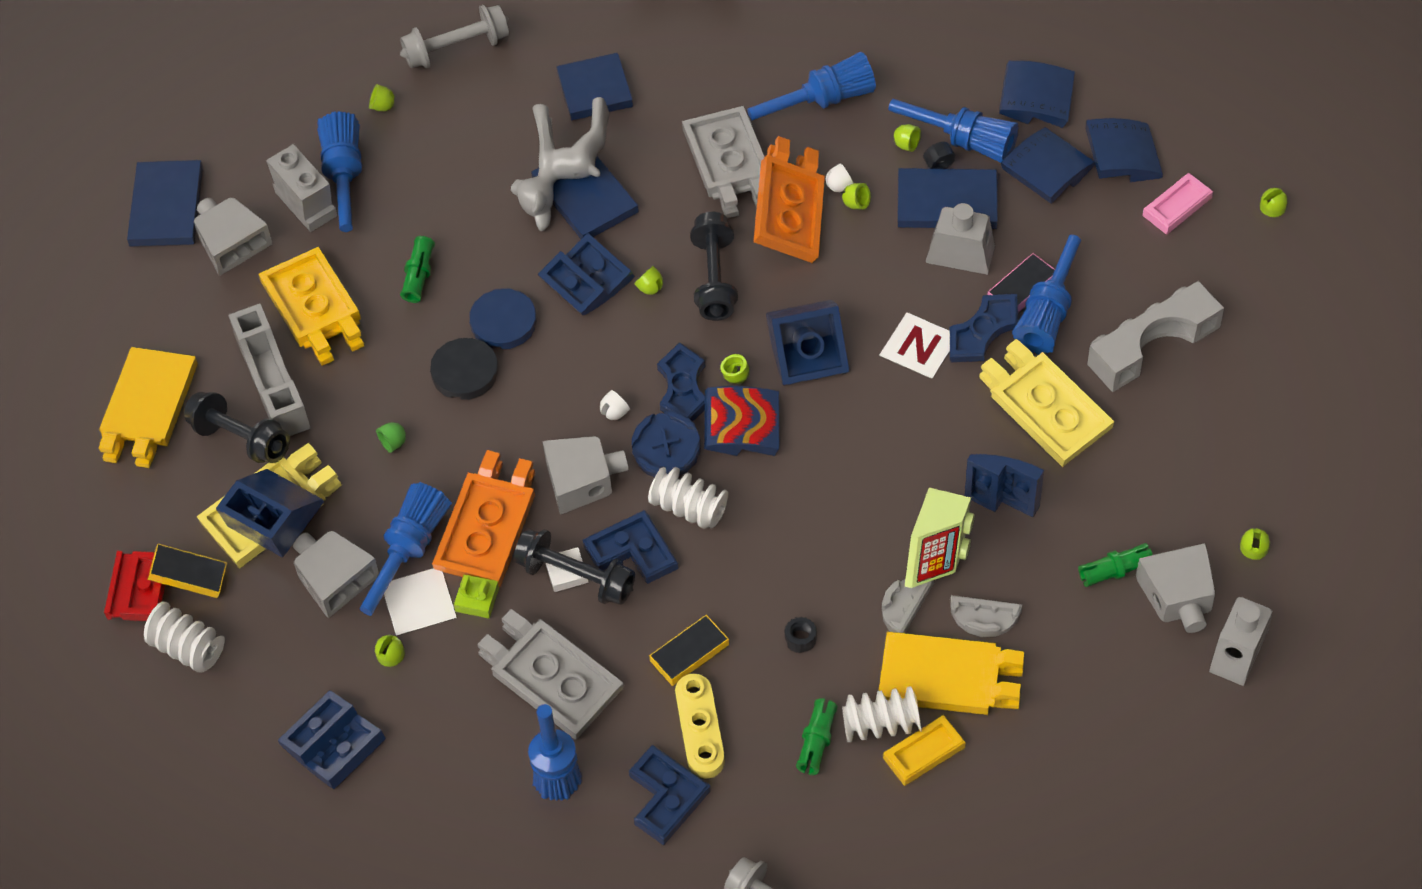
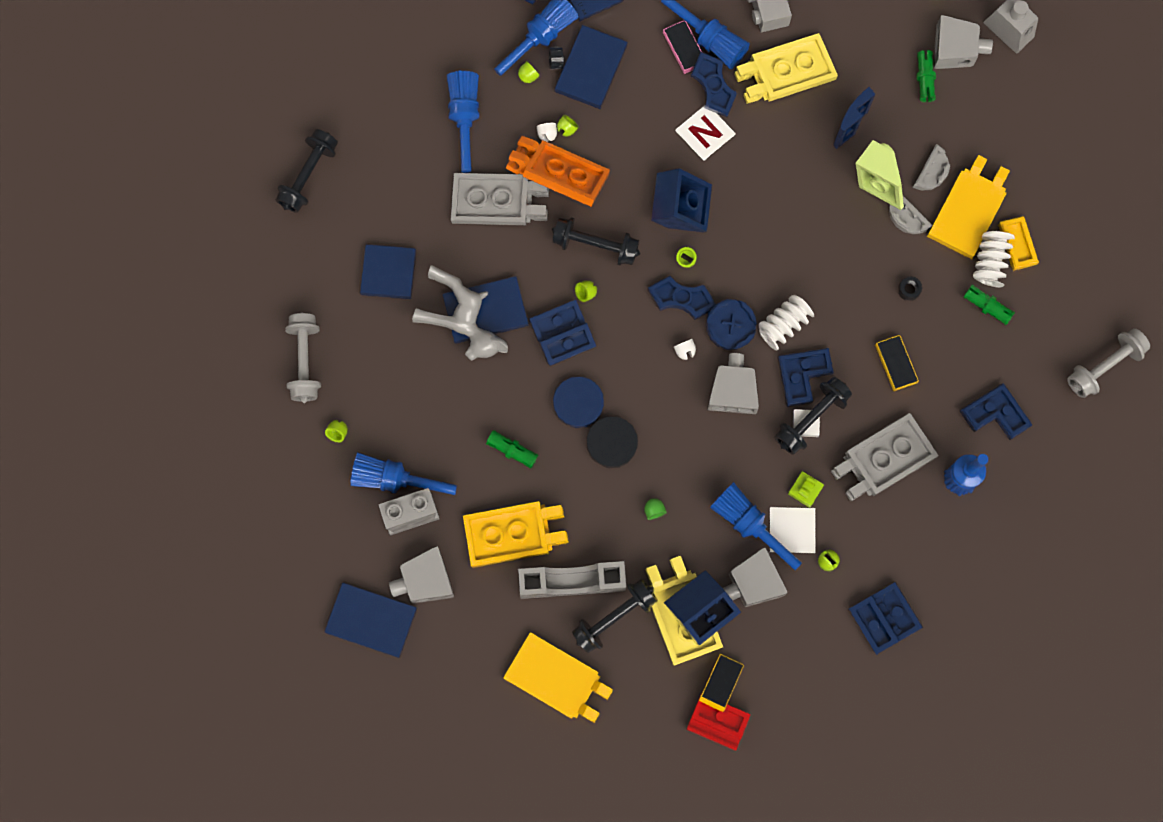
camera: 75 degrees left, 20 degrees up
(183, 638) = (775, 700): white piece -> none
(486, 521) = (750, 464): orange tile -> none
(704, 737) = (943, 375): light yellow plate -> none
(741, 420) = (729, 267): slope -> none
(962, 240) = (642, 68): light grey torso -> none

